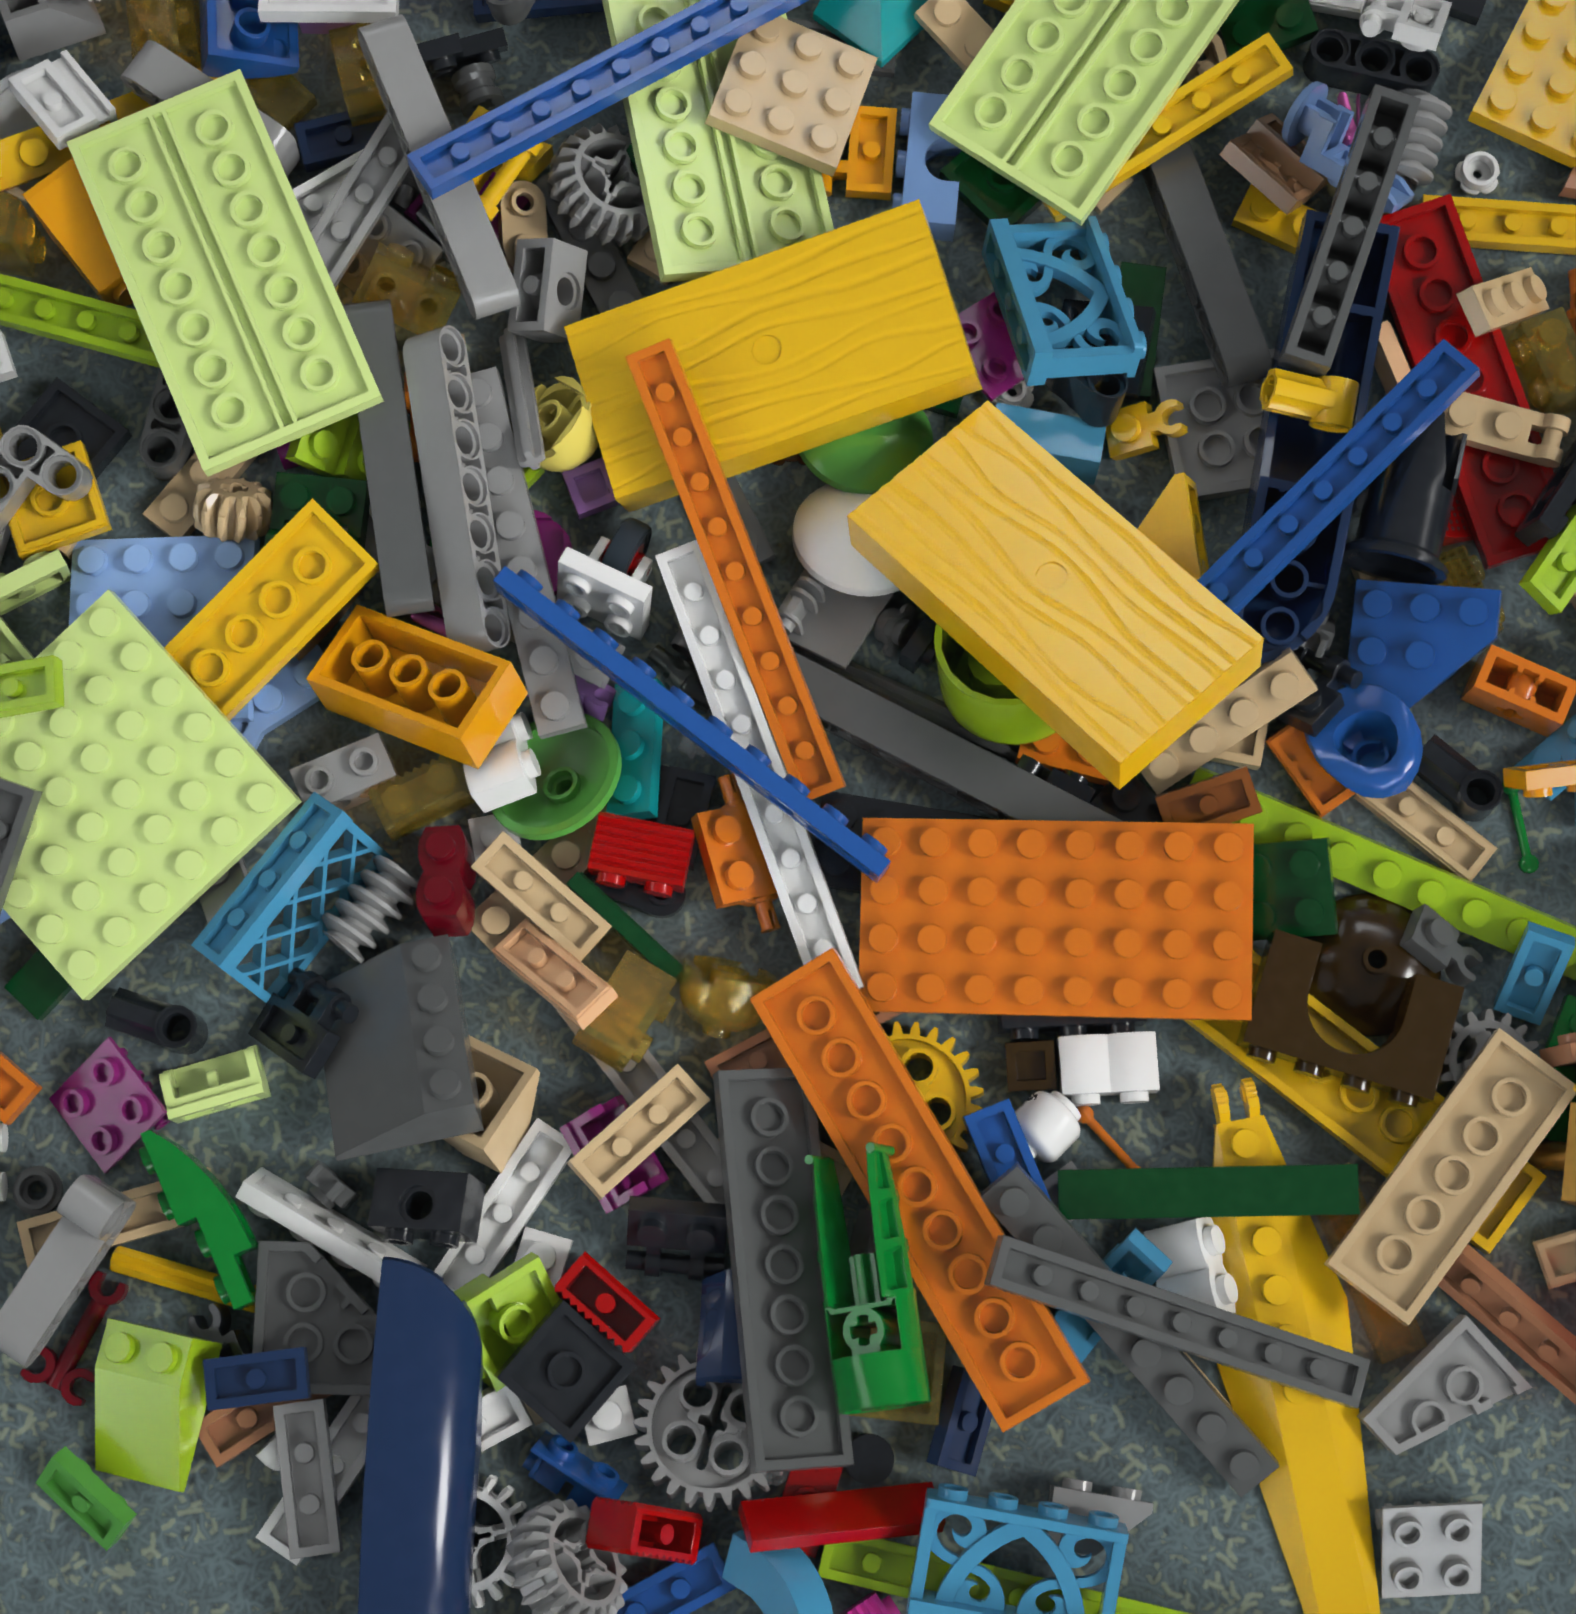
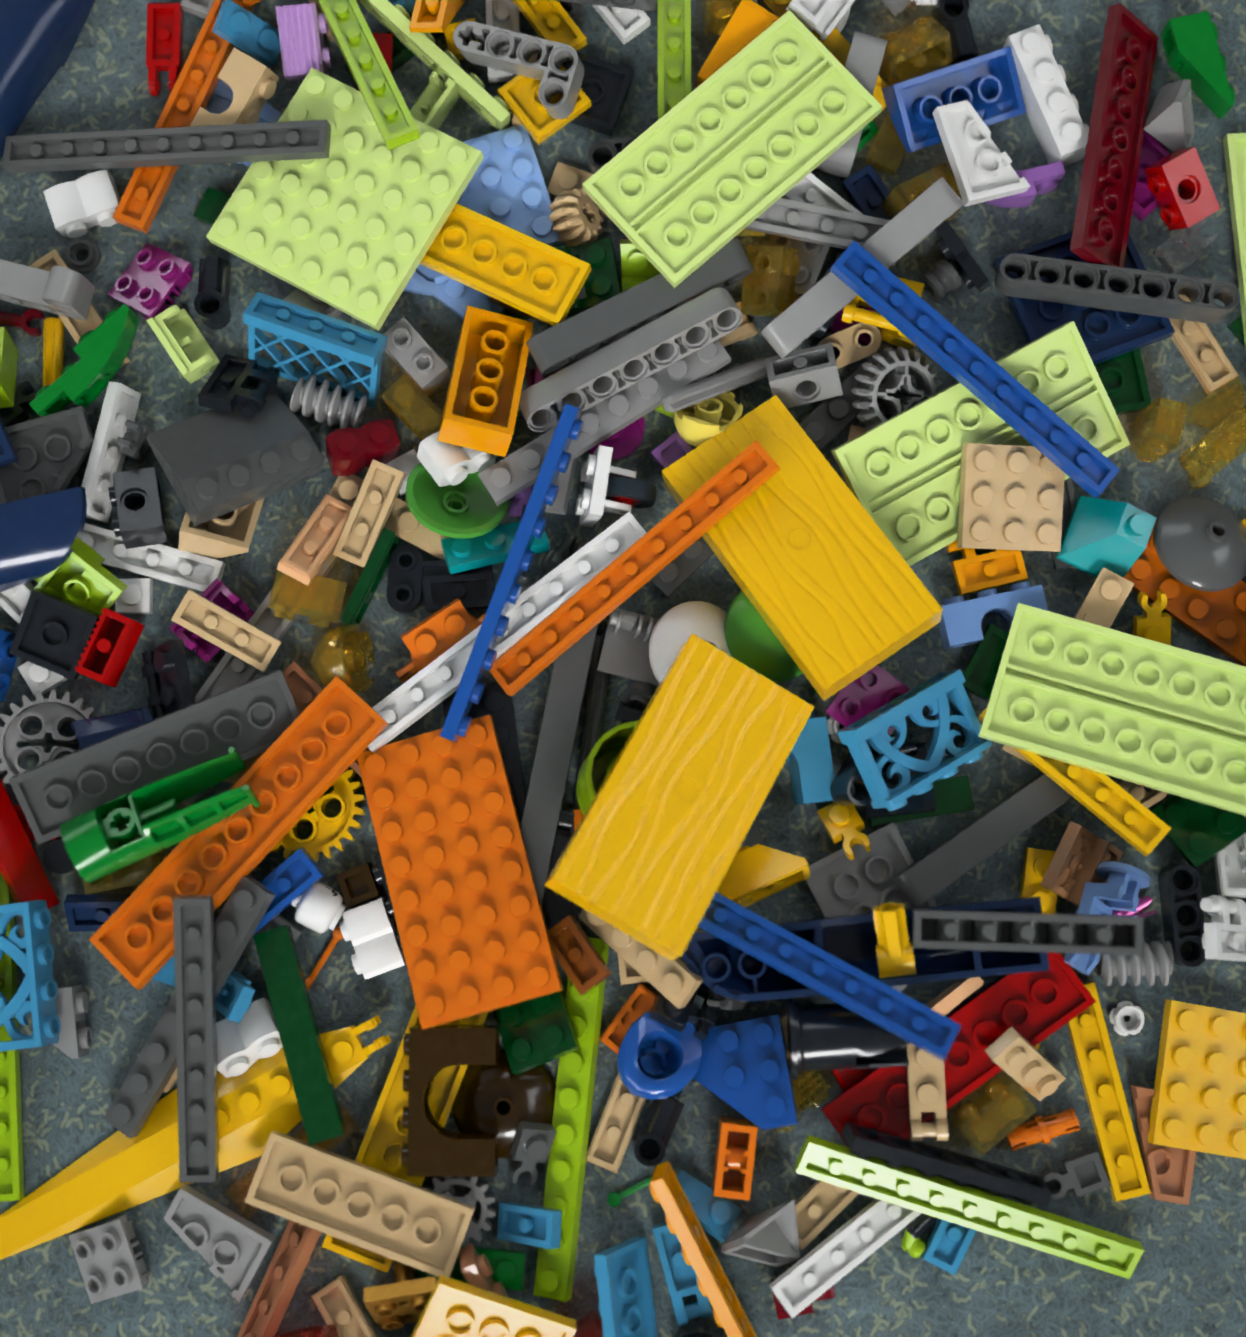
camera: 75 degrees right, 5 degrees up
(640, 854) = (418, 570): red brick -> none

